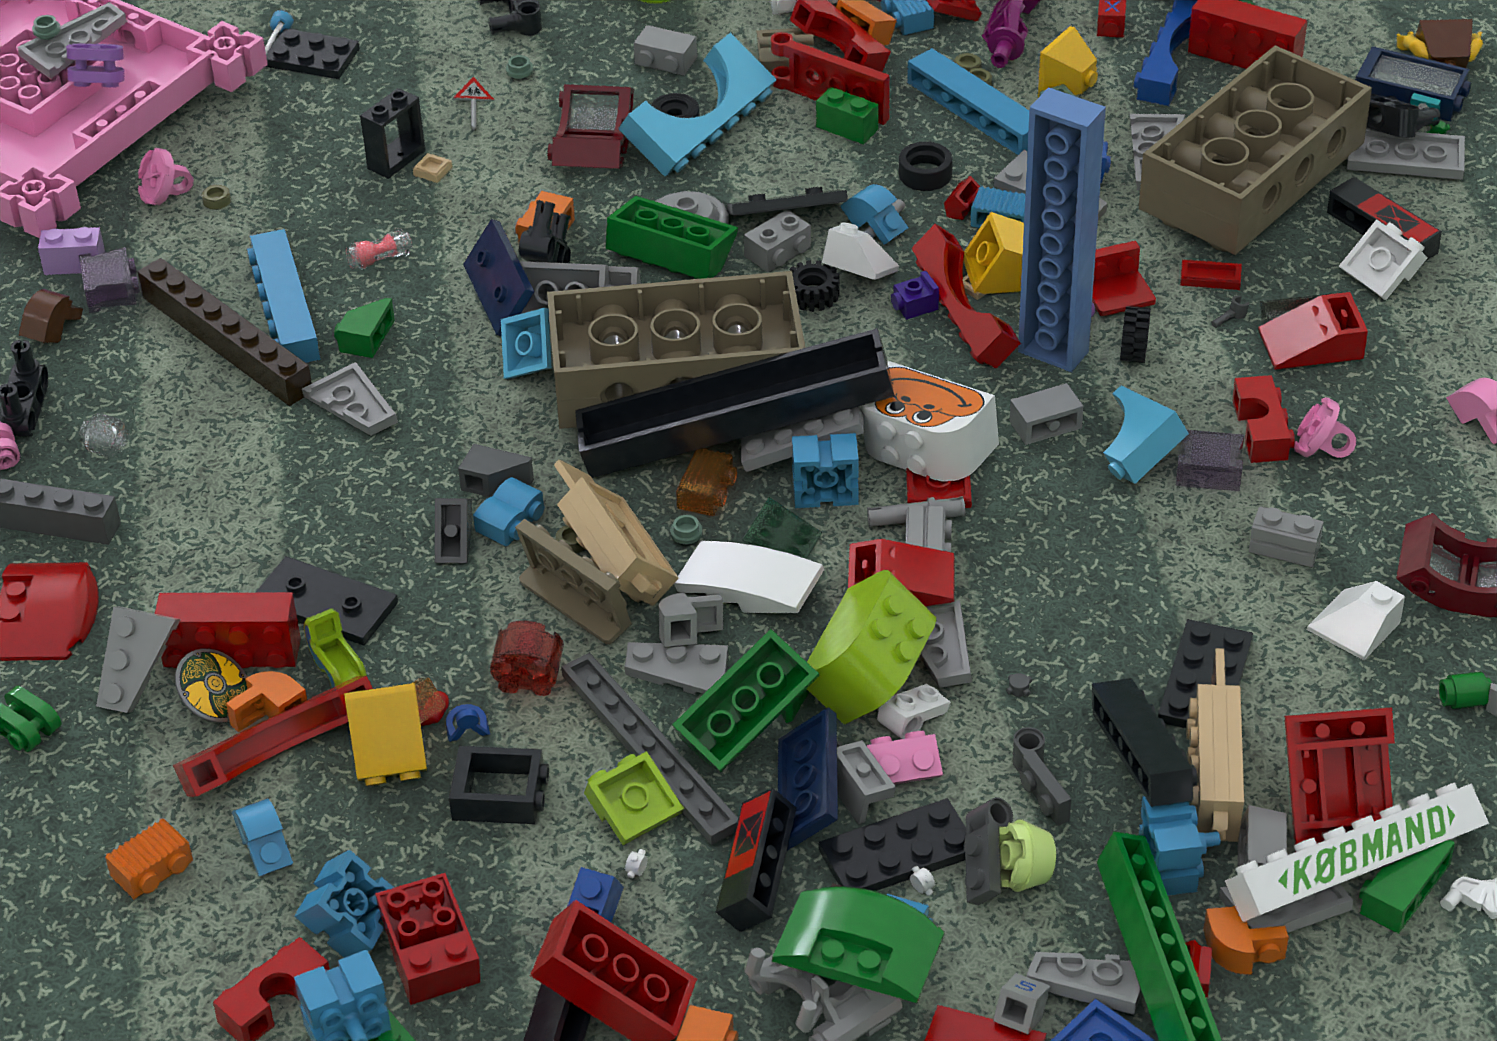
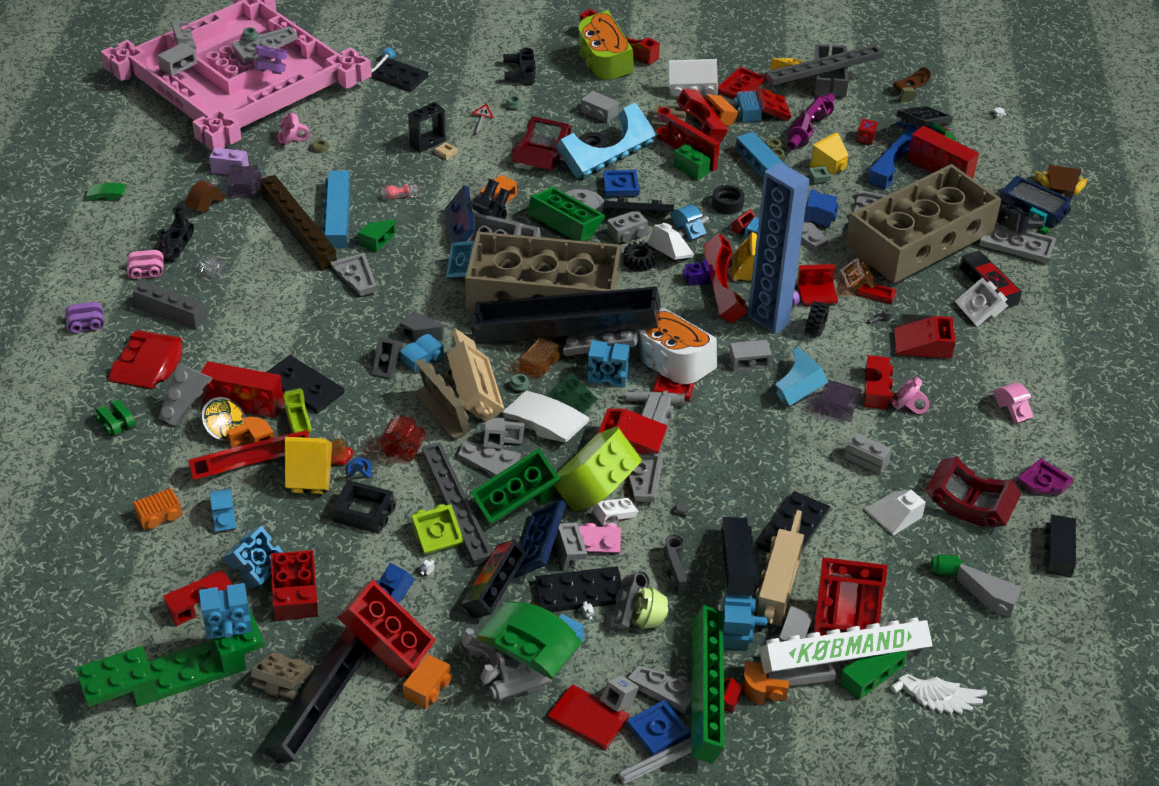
camera: 10 degrees right, 0 degrees up
(742, 170) = (621, 183): none -> blue plate
(1173, 252) = (856, 275): none -> clear orange bracket

